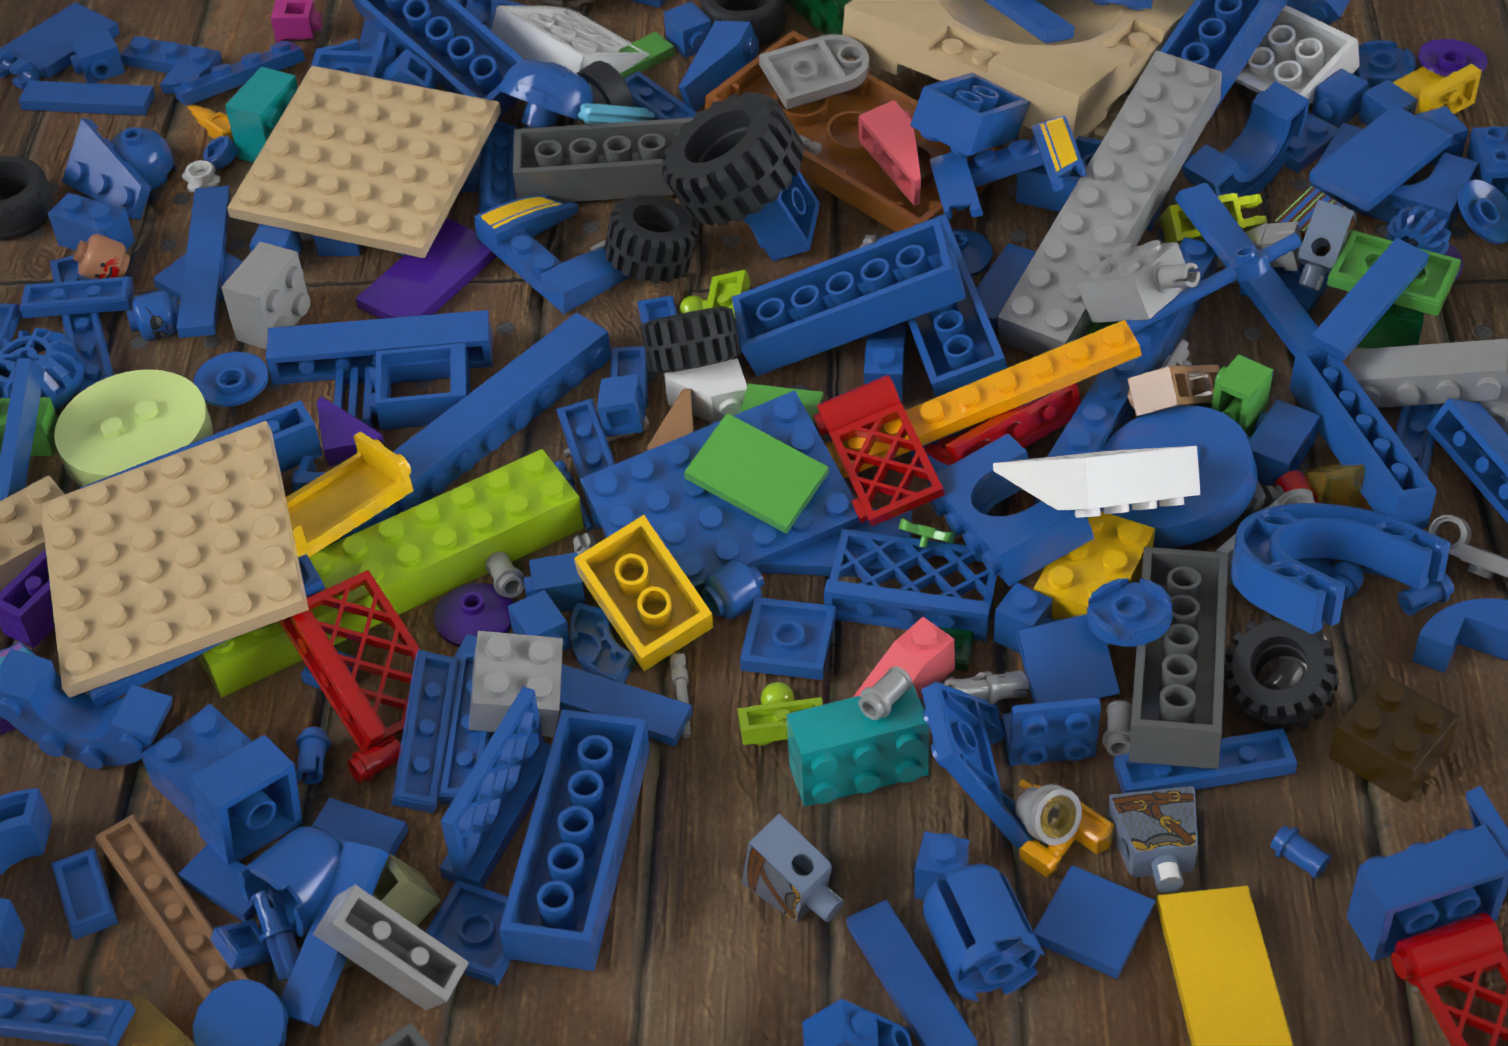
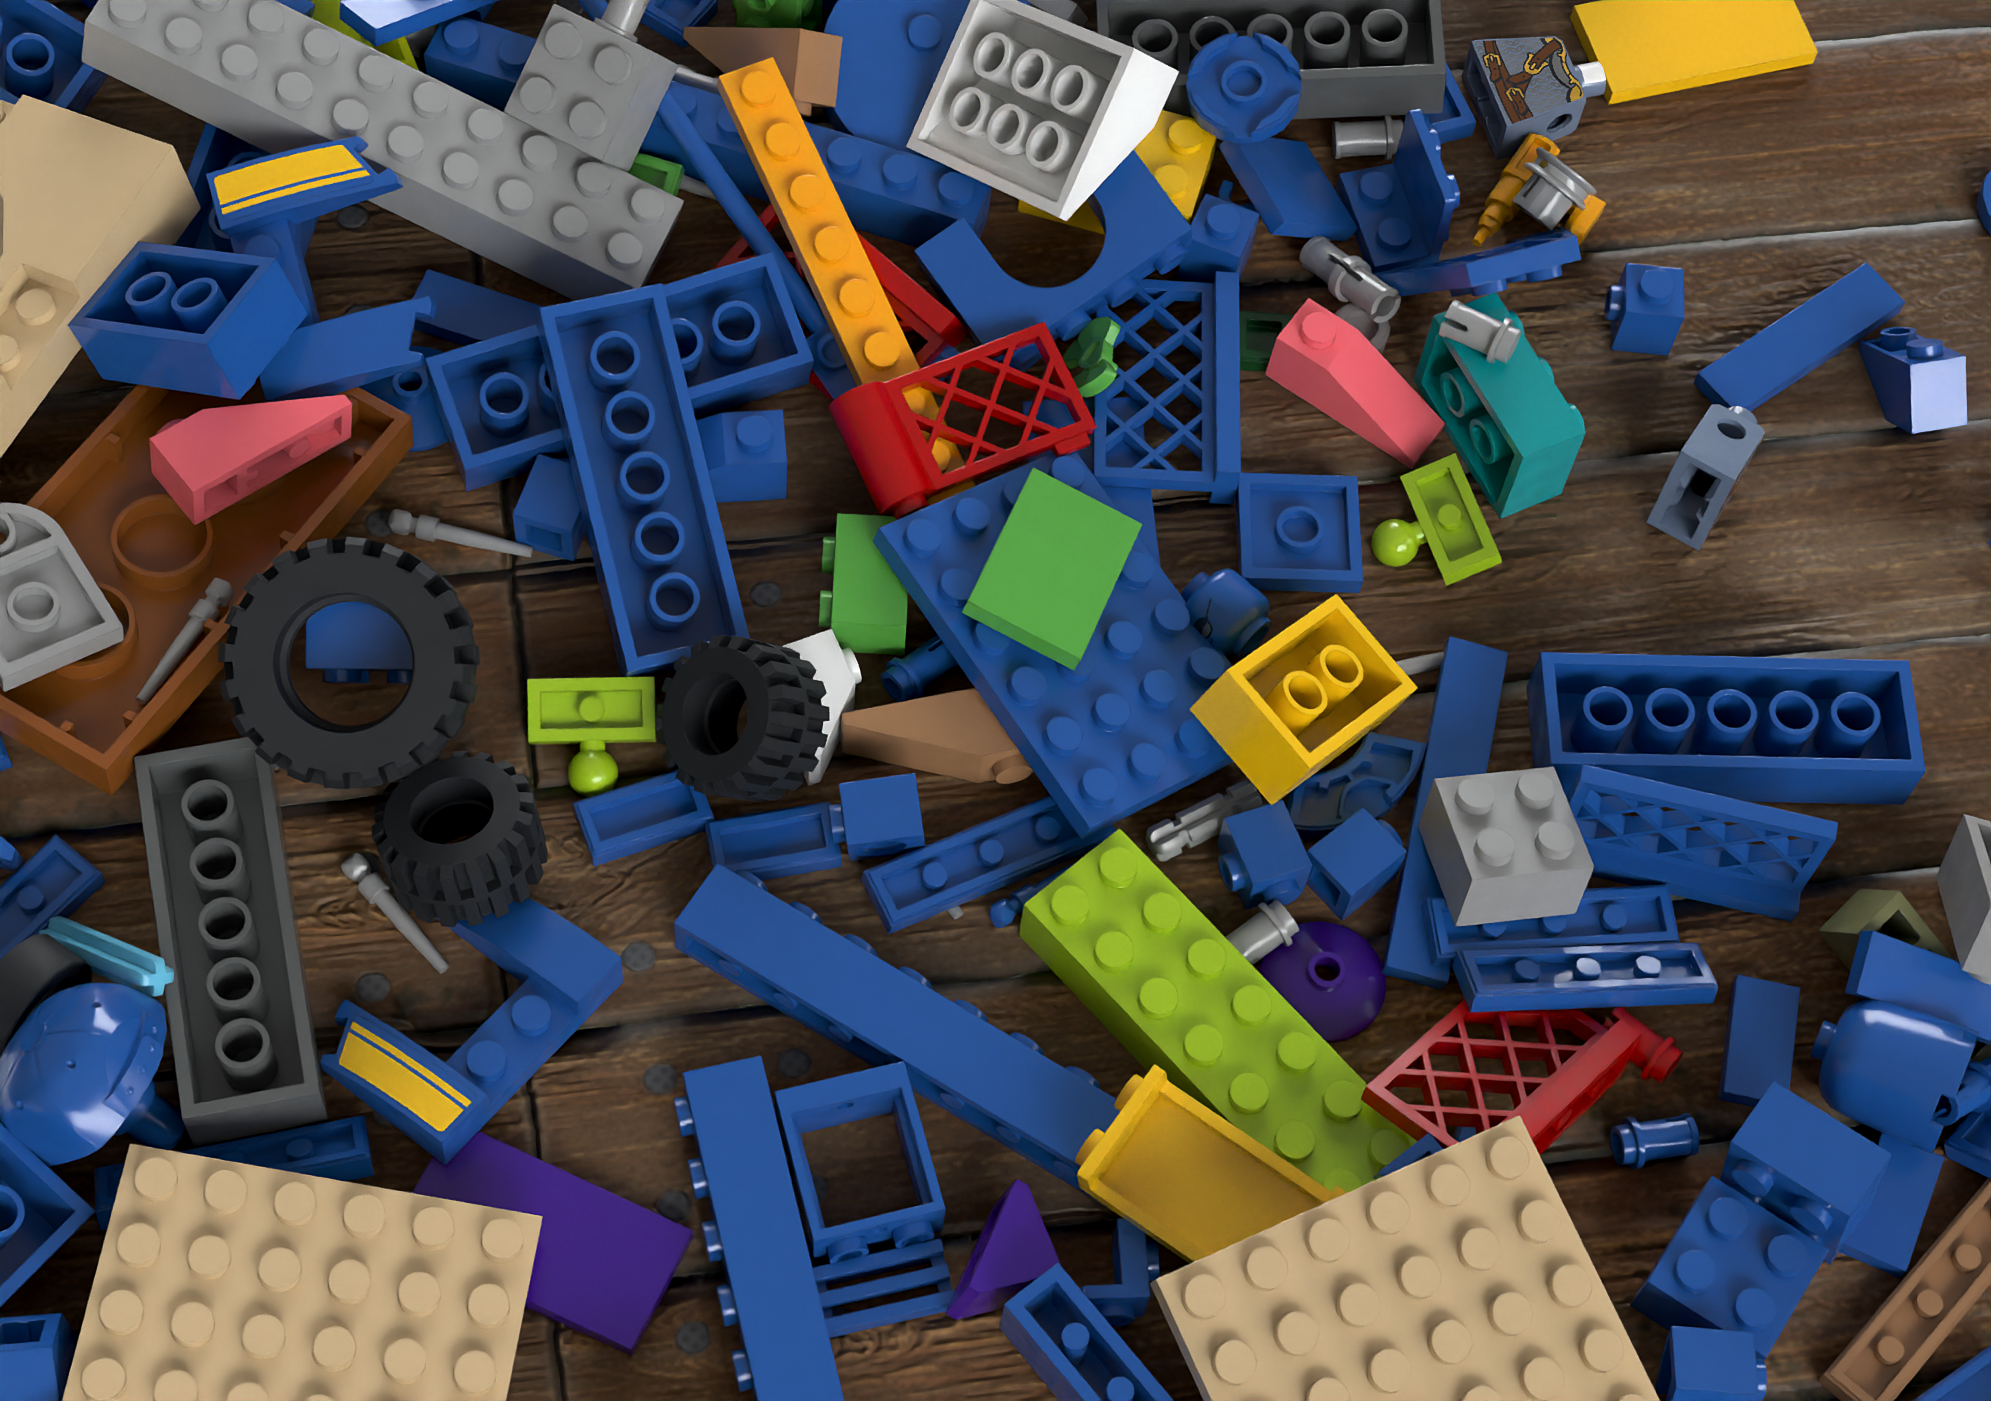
camera: 110 degrees left, 15 degrees up
(470, 927) = (1876, 849): blue tile -> none
(981, 931) = (1746, 247): blue cylinder -> none
(1094, 921) = (1658, 160): blue tile -> none

